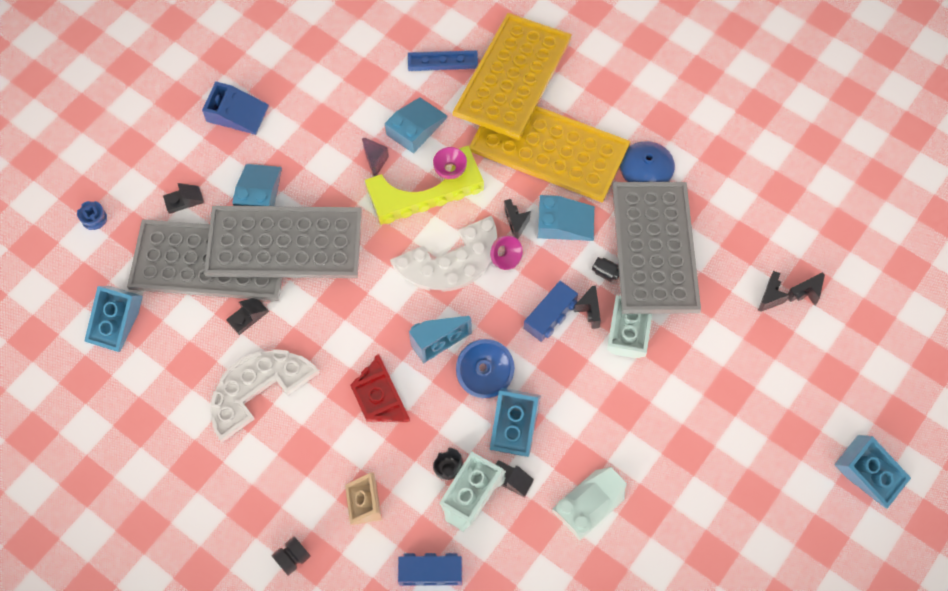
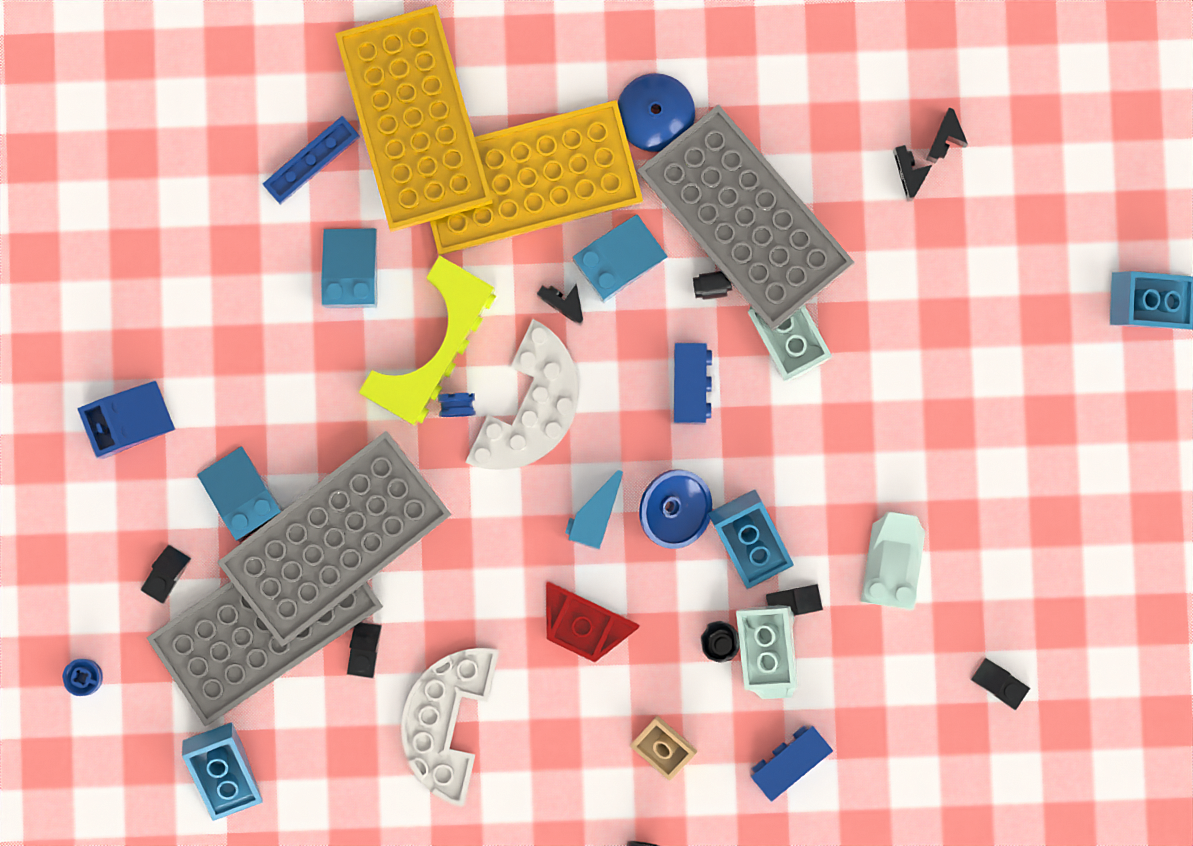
camera: 35 degrees left, 20 degrees up
(376, 155) = (339, 348): slope -> none
(411, 226) = (456, 405): none -> blue wheel
(452, 156) = (443, 285): dark pink piece -> none
(512, 254) = (594, 354): dark pink piece -> none
(590, 305) = (725, 338): black slope -> none

